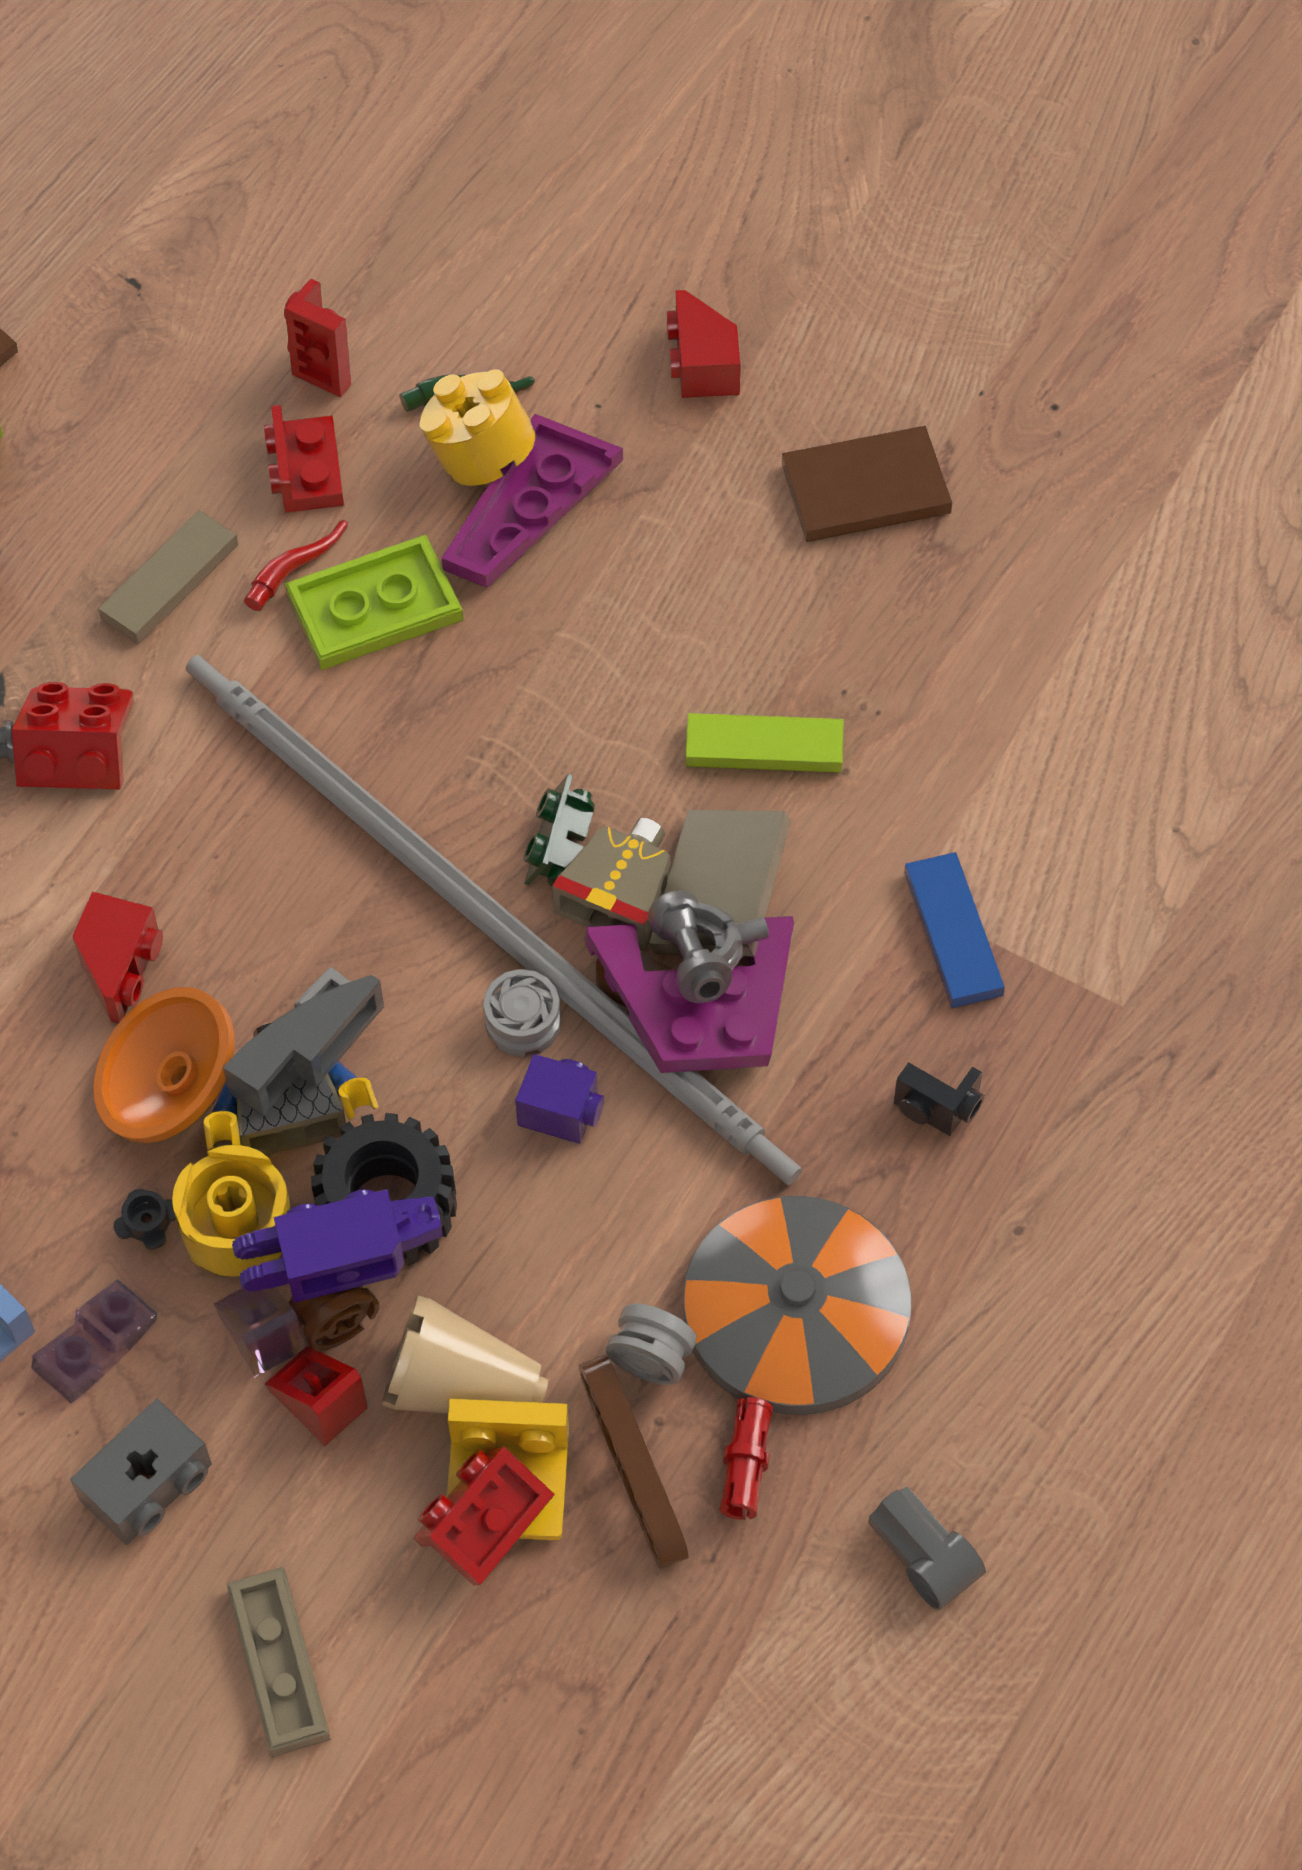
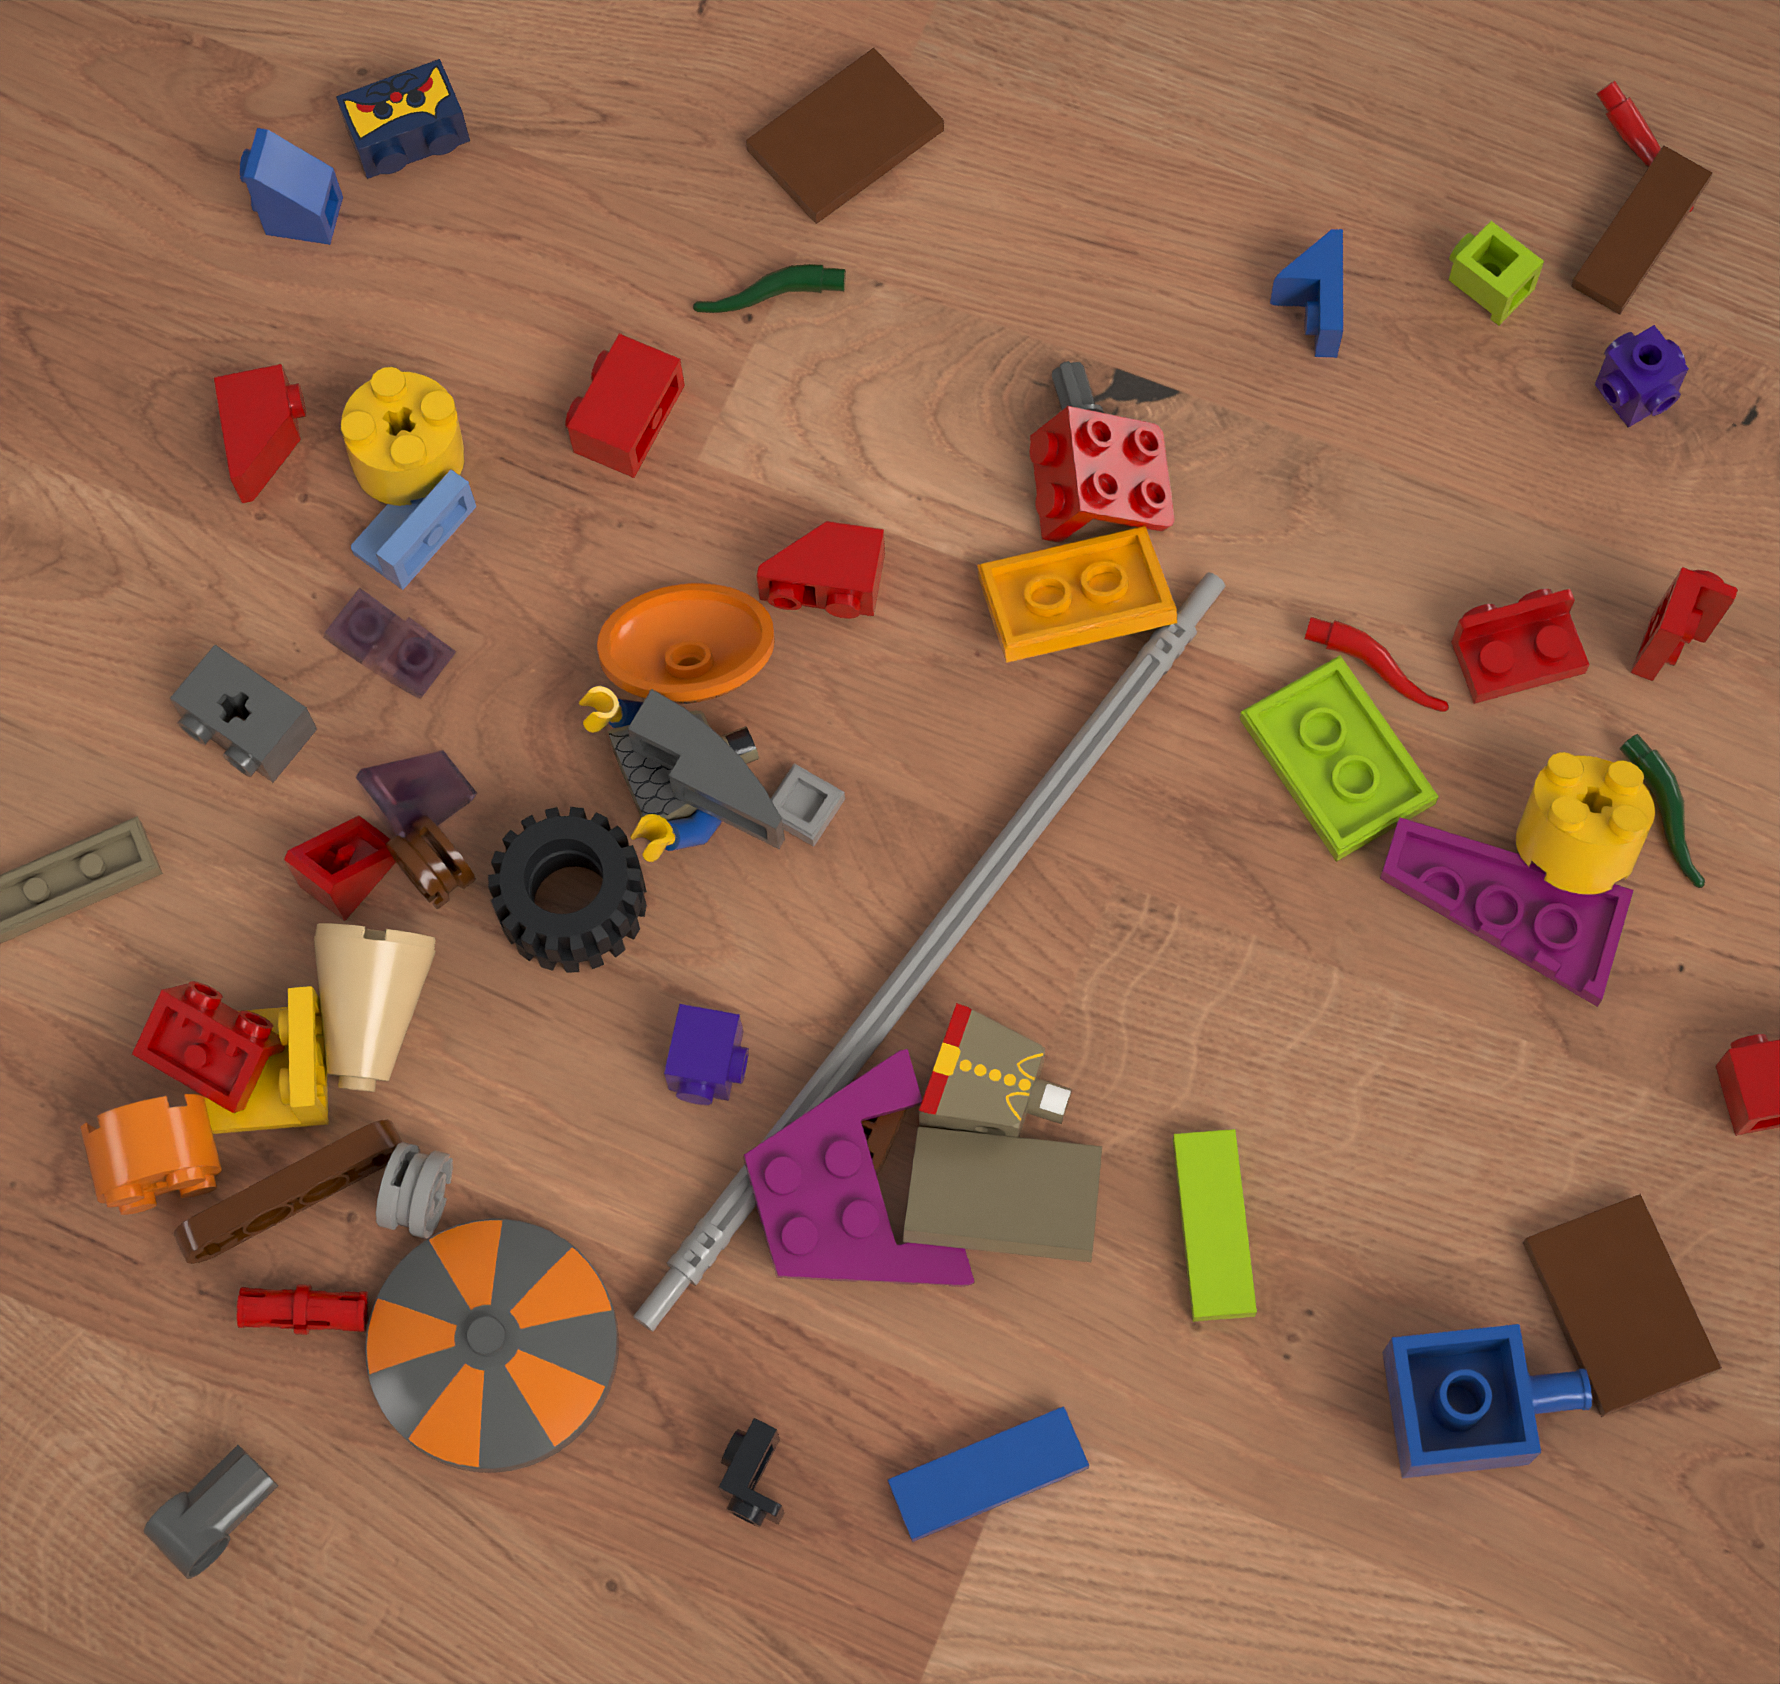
camera: 85 degrees right, 10 degrees up
(86, 335) = (1641, 375): none -> dark purple brick
(136, 1206) = (525, 650): black plate -> none
(168, 576) = (1331, 533): dark tan tile -> none
(183, 764) = (1076, 594): none -> light orange tile
(224, 1198) = (497, 735): yellow brick -> none
(338, 1243) = (459, 845): dark purple hinge -> none
(523, 1013) = (810, 1001): light grey wheel -> none
(562, 815) = (1071, 1007): hinge -> none
(584, 1569) = (151, 1152): none -> orange brick
(702, 974) = (847, 1178): flat silver piece -> none
(937, 580) = (1470, 1401): none -> blue brick

